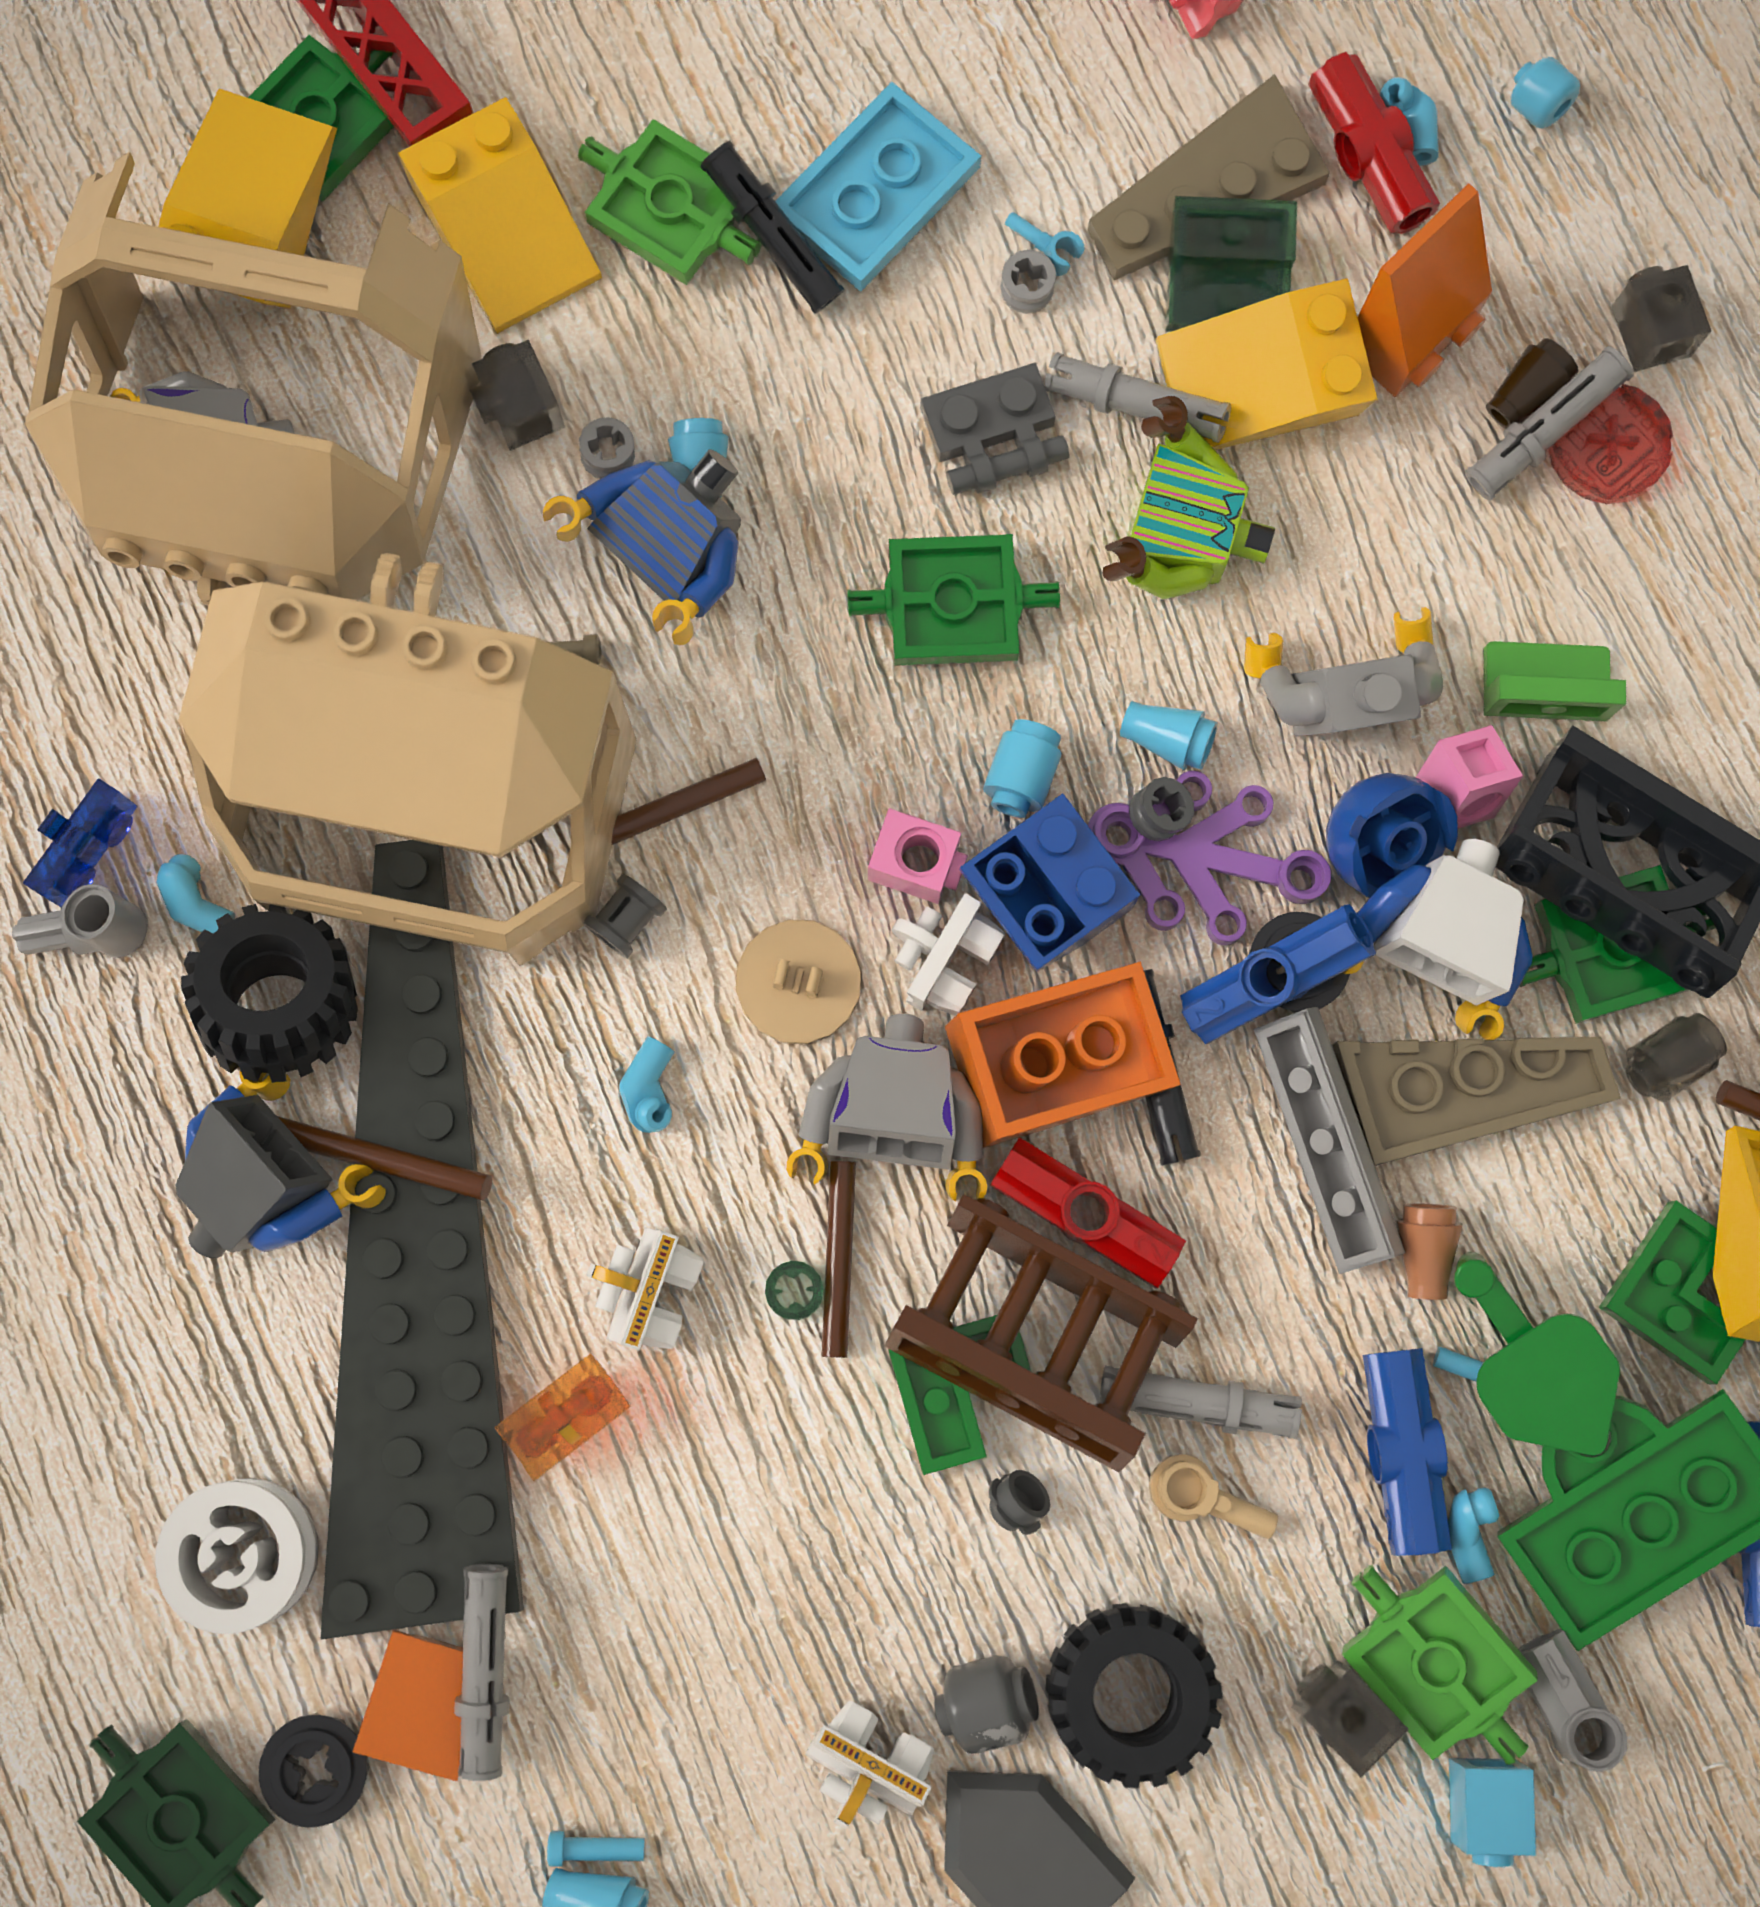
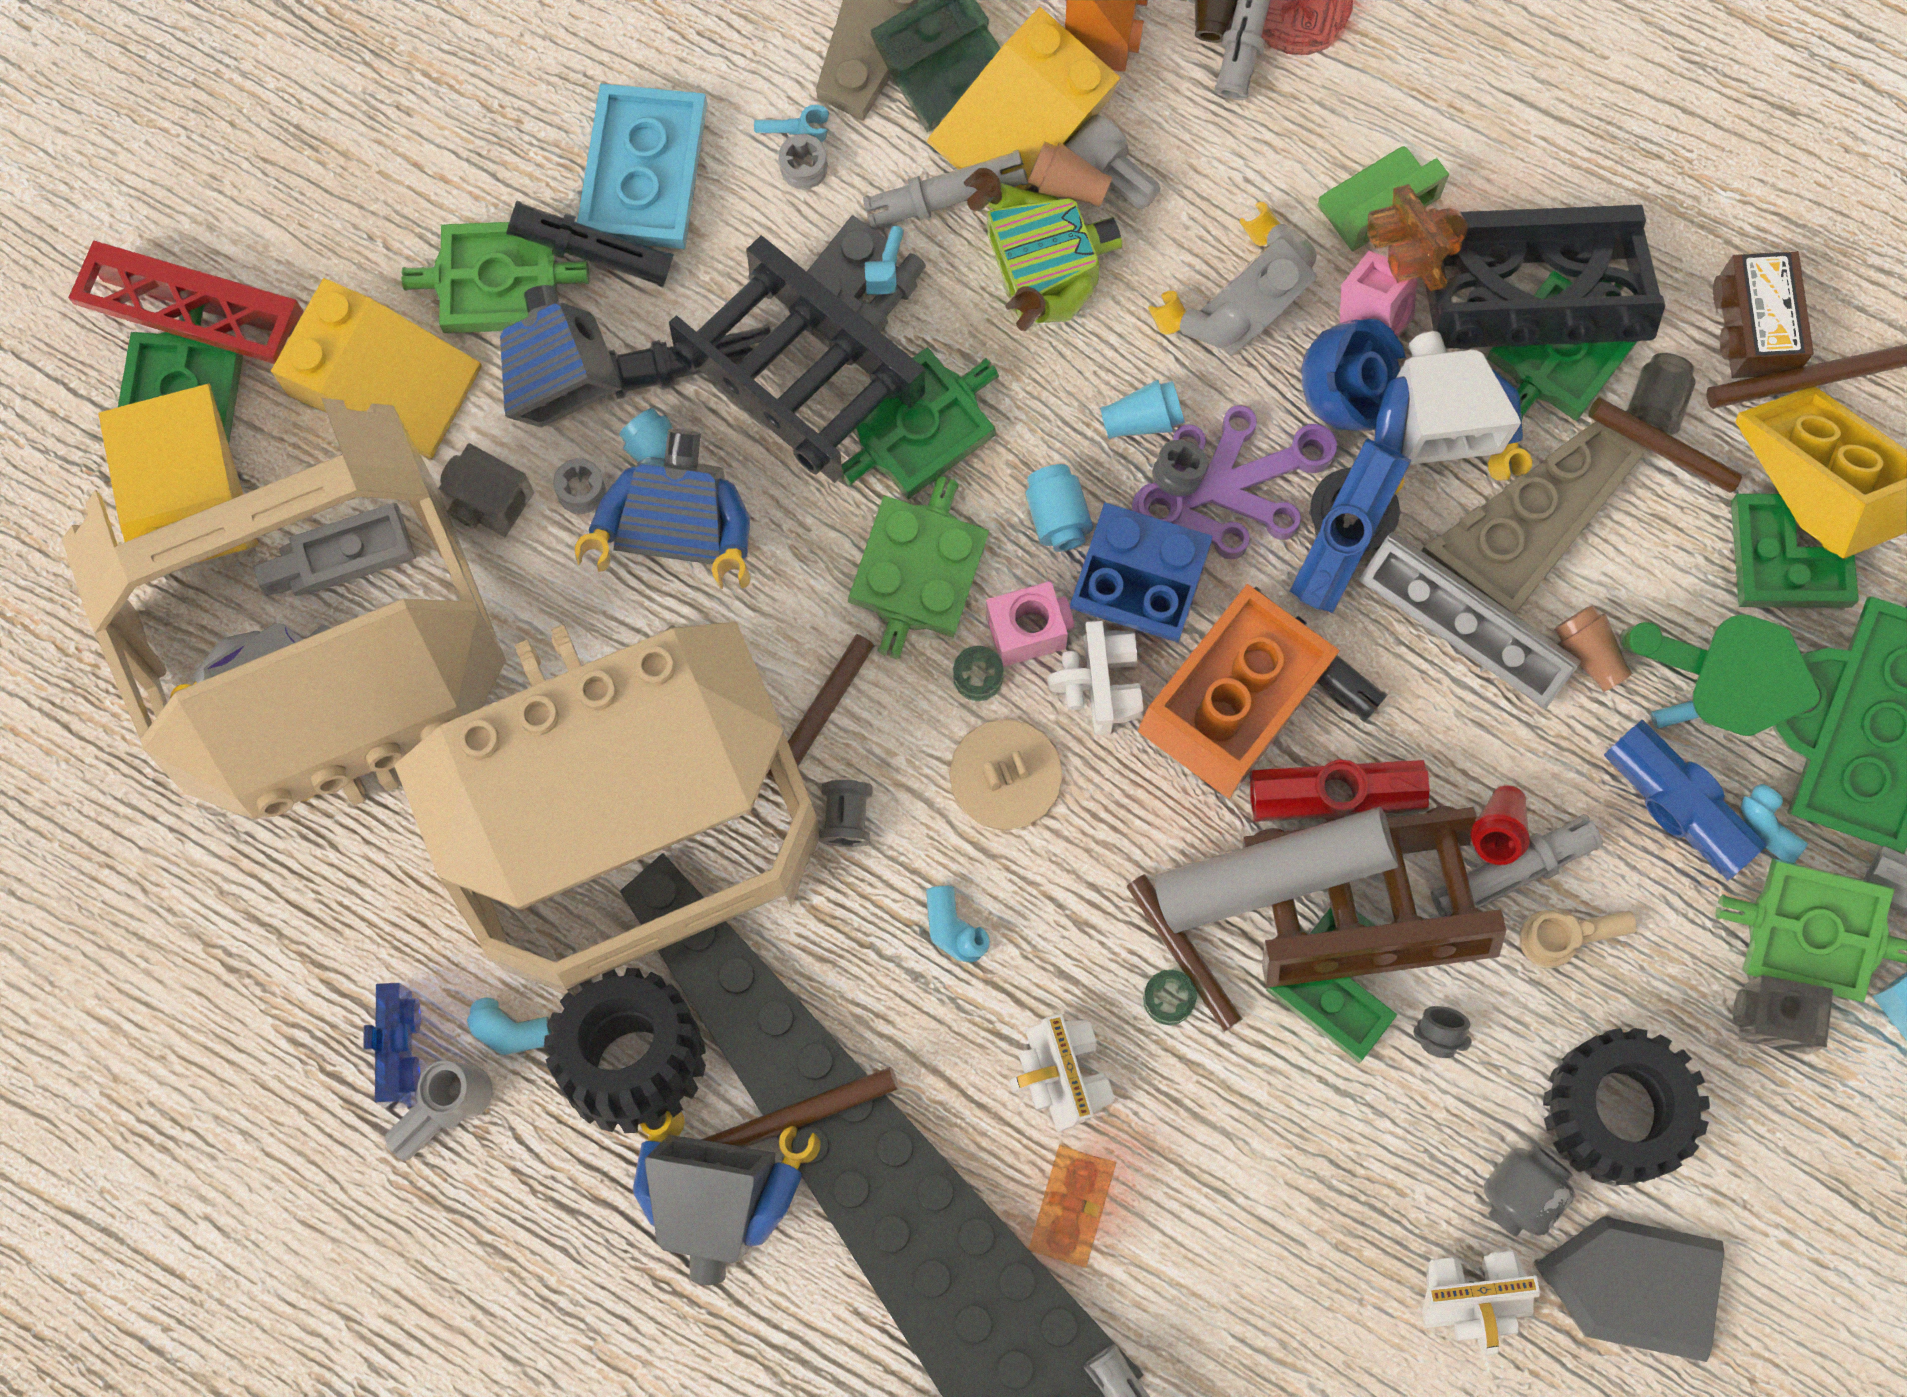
camera: 30 degrees left, 5 degrees down
(342, 362) = (338, 553): none -> light grey hinge
(659, 314) = (553, 361): none -> dark grey torso
(761, 388) = (660, 367): none -> black pin
(836, 852) = (991, 684): none -> clear green bush
(857, 734) = (918, 567): none -> bright green plate
(894, 1106) = (1146, 809): light grey torso -> none
(923, 425) = (810, 309): none -> black fence
(968, 1247) = (1276, 870): none -> light grey brick
(1017, 439) = (881, 275): none -> medium azure hand
(1212, 1355) = (1502, 827): none -> red cone
(1259, 460) = (1067, 175): none -> nougat cone
(1305, 463) = (1107, 149): none -> light grey axle
(1552, 746) = (1421, 237): none -> clear orange hips
(1641, 1106) = (1664, 445): none -> reddish brown bar

